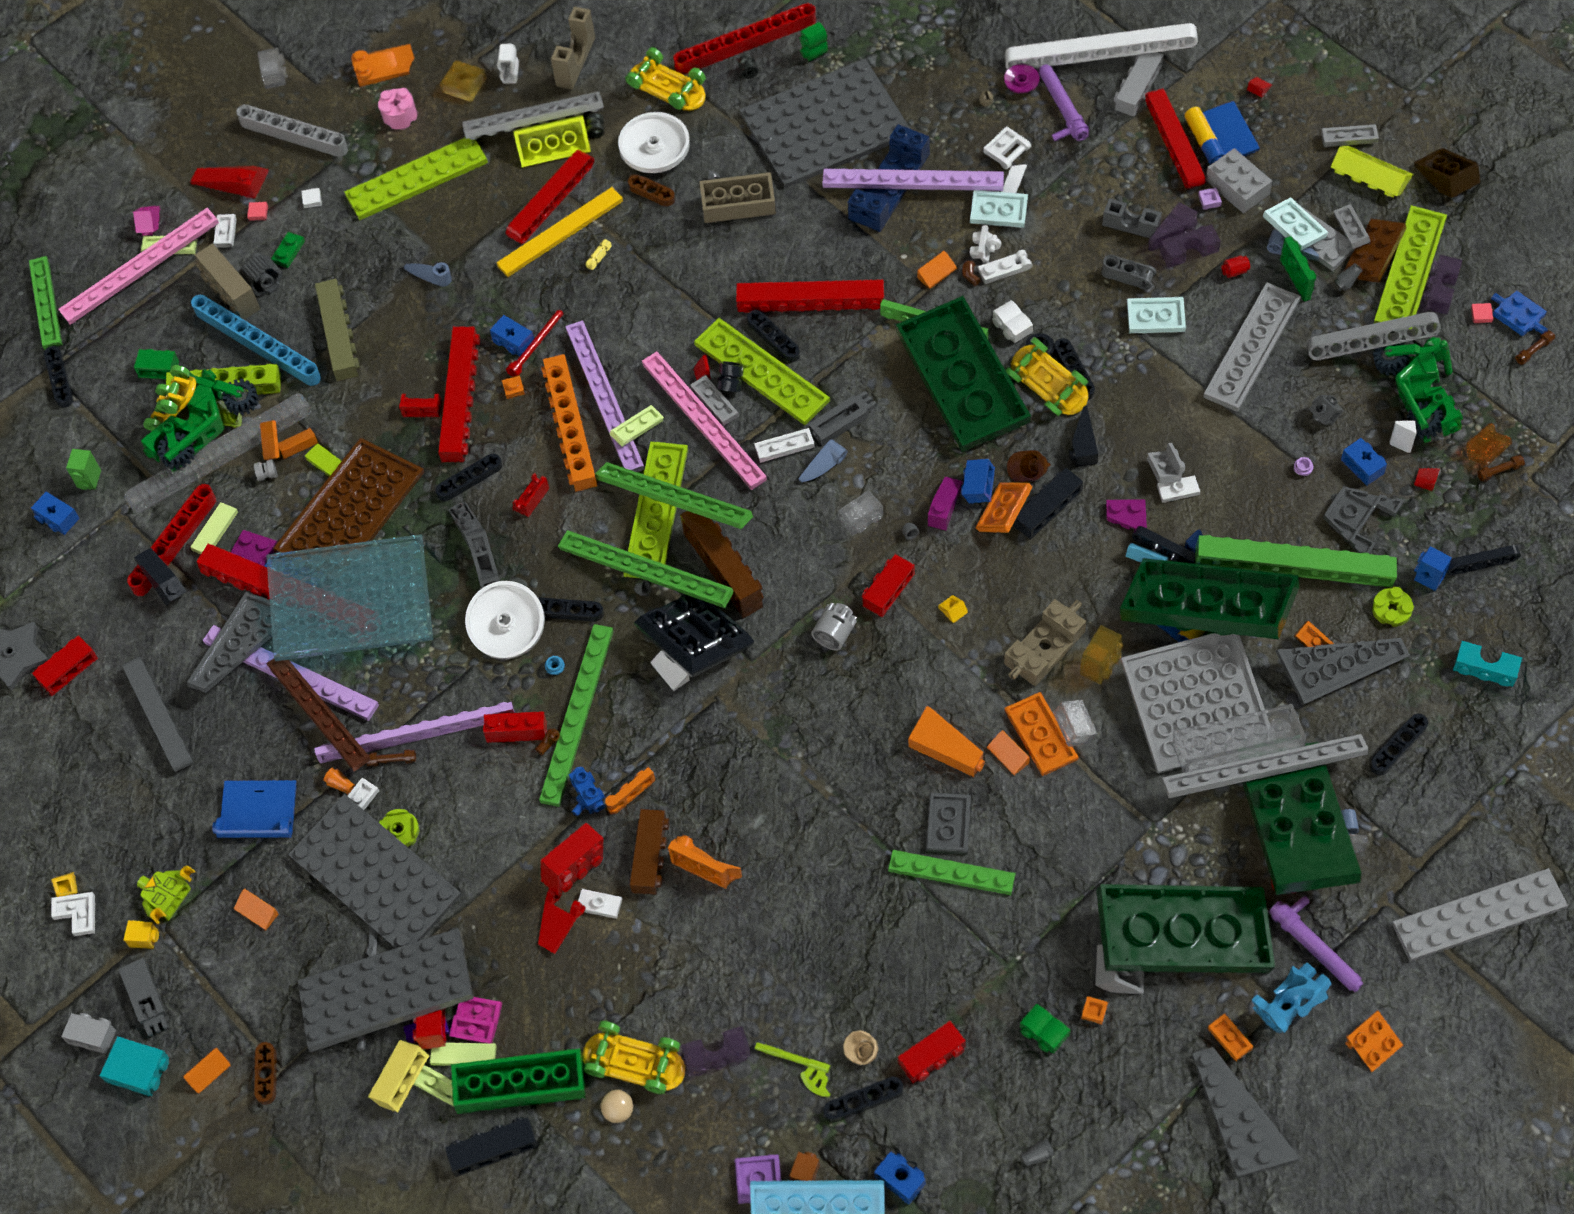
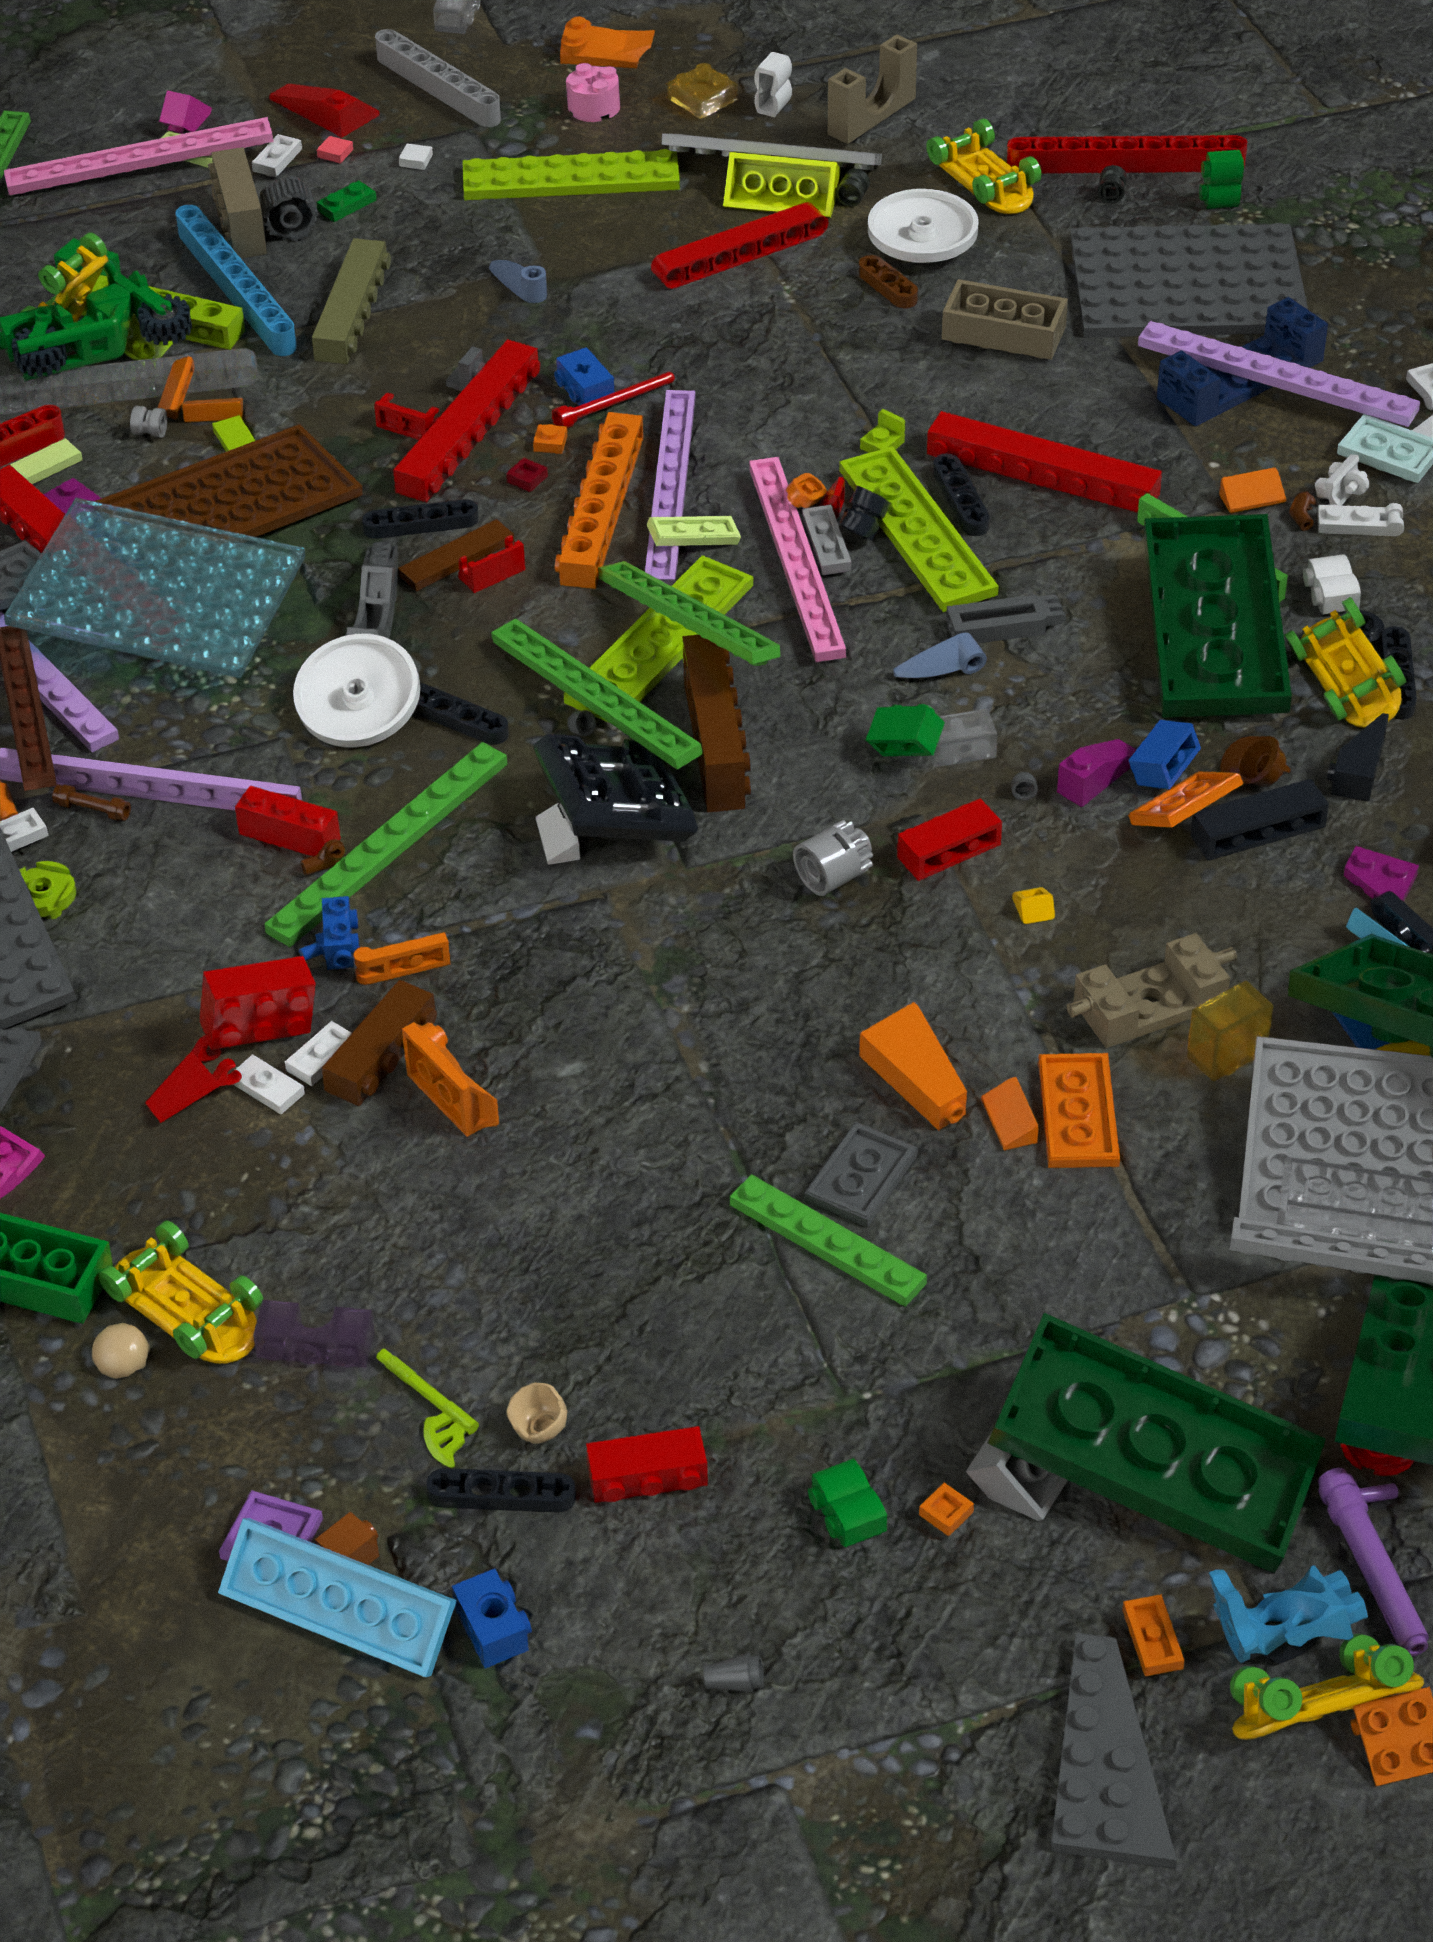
camera: 20 degrees right, 15 degrees down
(440, 360) = (467, 369): none -> dark grey bracket
(504, 495) = (445, 559): none -> reddish brown tile
(514, 419) = (527, 474): none -> dark red tile
(554, 660) = (394, 772): dark azure plate -> none
(559, 232) = (729, 289): yellow tile -> none
(598, 254) = (766, 329): light yellow axle -> none
(619, 872) = (312, 1056): none -> white plate
(686, 371) = (805, 491): none -> orange plate
(708, 310) = (887, 433): none -> lime bracket
(784, 445) = (896, 623): white plate -> none
(831, 524) = (905, 730): none -> green brick
(1075, 723) = (1138, 1108): clear brick -> none
(1329, 1038) = (1280, 1702): none -> piece

